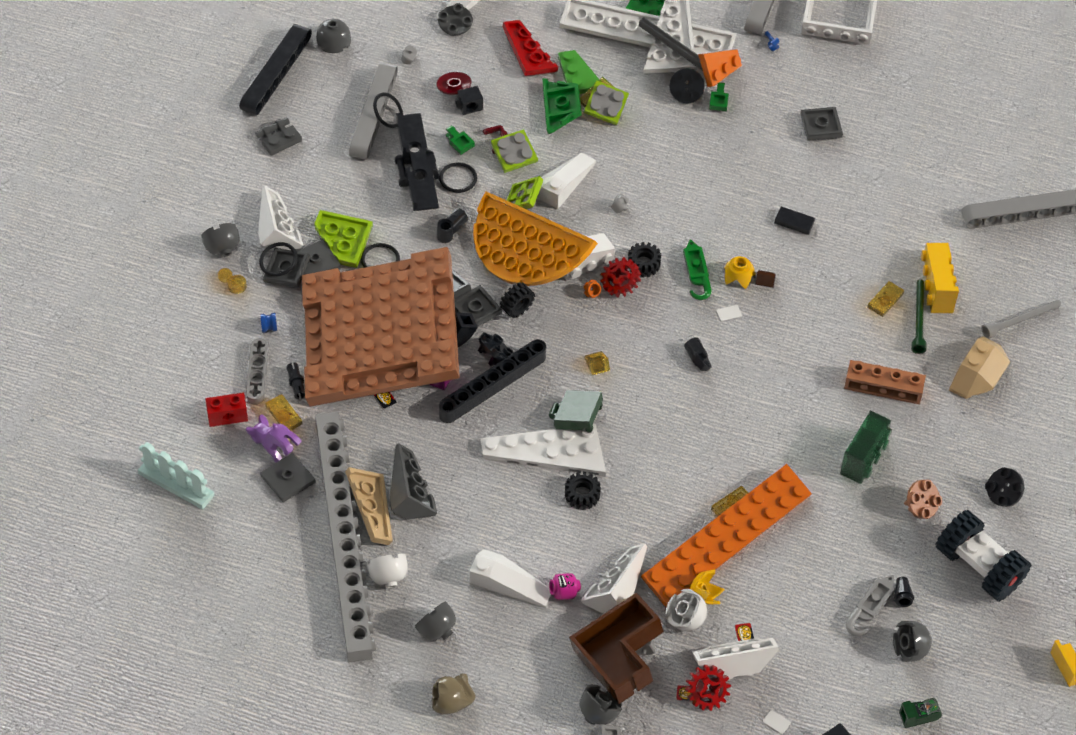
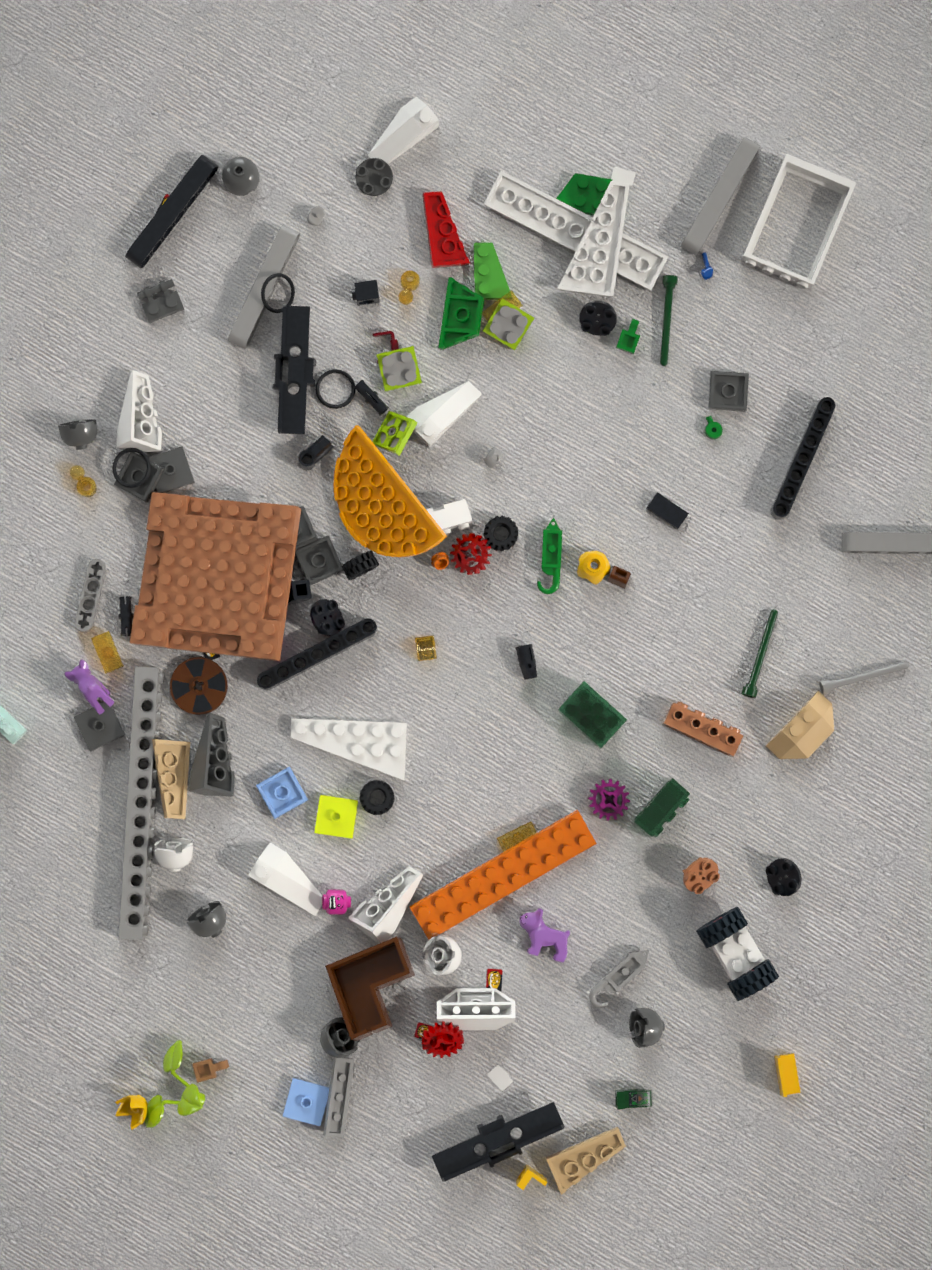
camera: 10 degrees right, 30 degrees up
(226, 409) = (52, 639): red brick -> none
(268, 322) = (110, 541): blue wheel -> none
(344, 236) = (203, 446): lime plate -> none
(378, 245) = (231, 495): black tyre -> none
(381, 415) = (212, 692): none -> reddish brown piece
(452, 82) = (354, 259): dark red dish -> none
(452, 694) = (208, 997): dark tan piece -> none
(459, 141) = (346, 345): green plate -> none
(486, 502) = (282, 792): none -> light blue plate
(494, 176) = (379, 405): none -> black pin
(506, 89) = (406, 295): none -> clear yellow plate
(545, 515) = (336, 816): none -> neon yellow plate
(576, 410) = (390, 707): piece -> none
(671, 42) = (595, 265): dark grey axle -> none
(705, 589) = (465, 931): yellow piece -> none
(719, 65) = (637, 301): orange wing -> none
(729, 313) = (571, 611): white sticker -> none
(744, 54) = (669, 283): none -> dark green piece
(774, 384) = (592, 715): none -> clear green brick
(784, 579) = (542, 935): none -> medium lavender animal
(812, 453) = (617, 809): none -> magenta gear
(816, 154) = (713, 425): none -> green piece
(885, 298) = (732, 628): clear yellow plate -> none
(903, 592) = (653, 969): black cone -> none
(906, 161) = (807, 450): none -> black beam
(940, 279) = (793, 614): yellow wedge -> none

